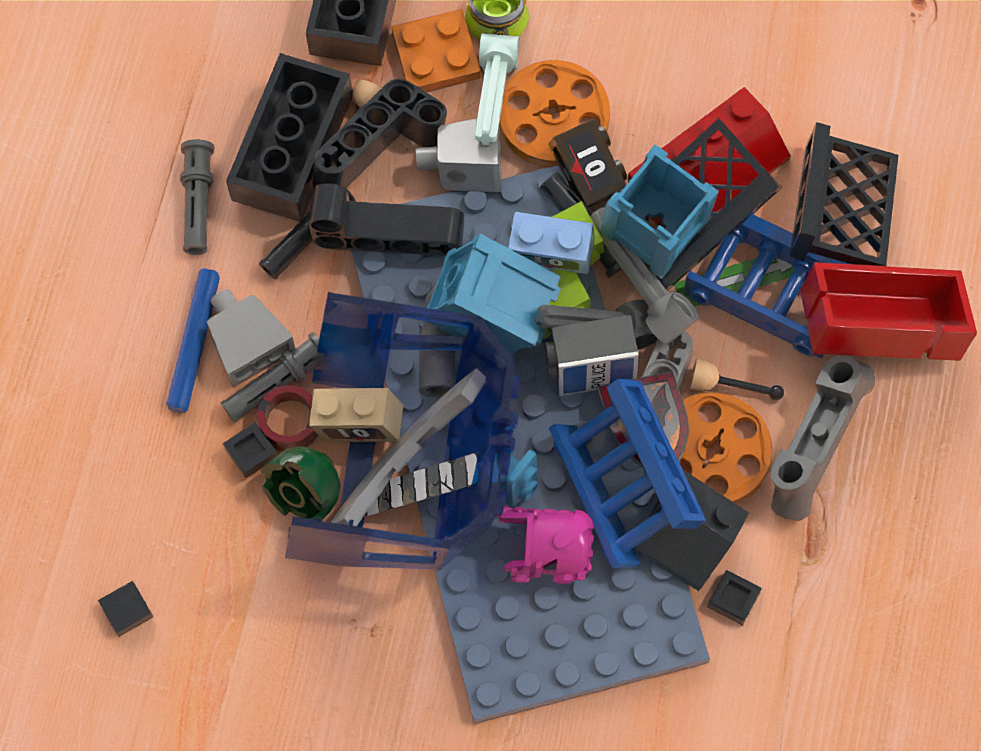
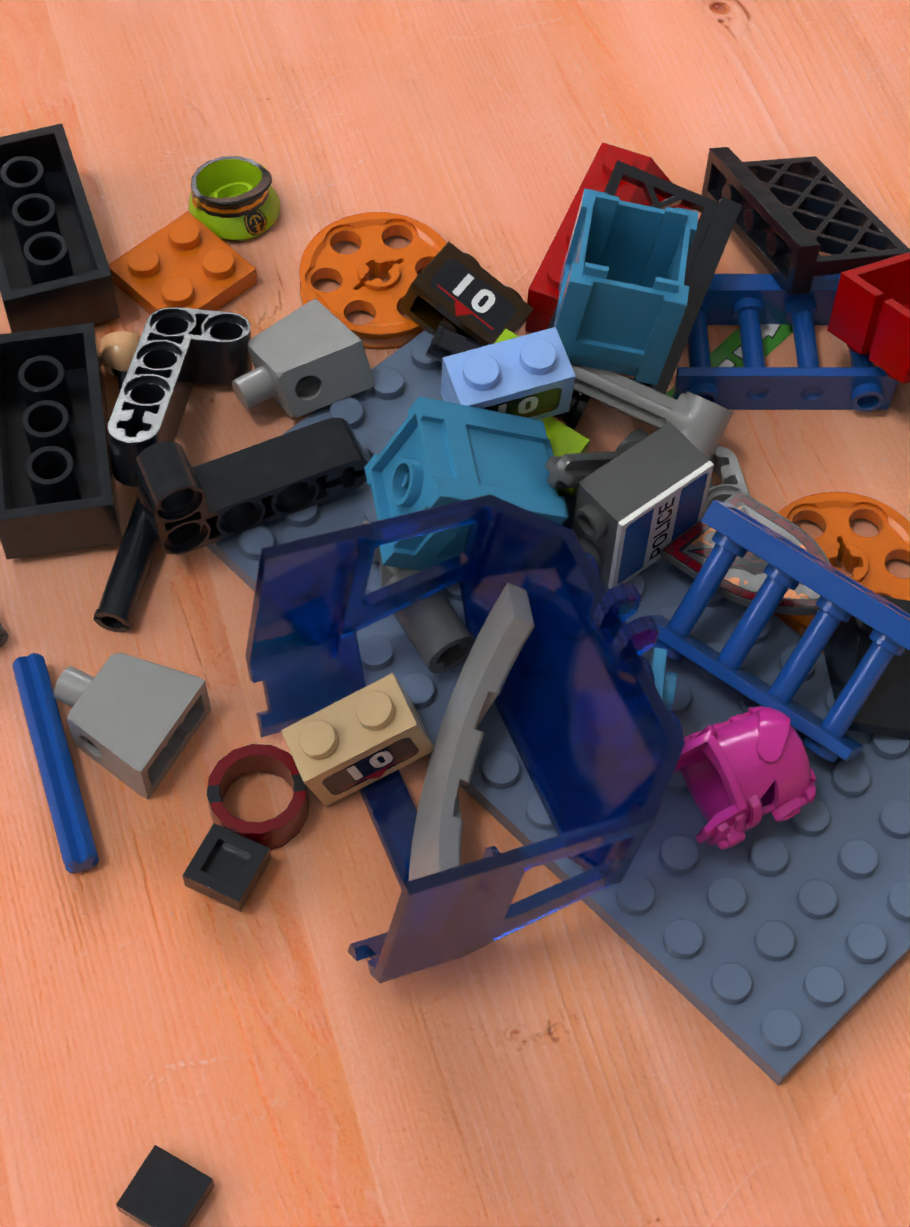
camera: 35 degrees left, 10 degrees down
(292, 367) = (220, 730): dark grey pin -> none
(302, 483) = (336, 873): dark green cylinder -> none
(425, 484) = (523, 774): sticker -> none
(498, 58) = (274, 246): light aqua axle -> none
(706, 377) = (775, 486): hinge -> none

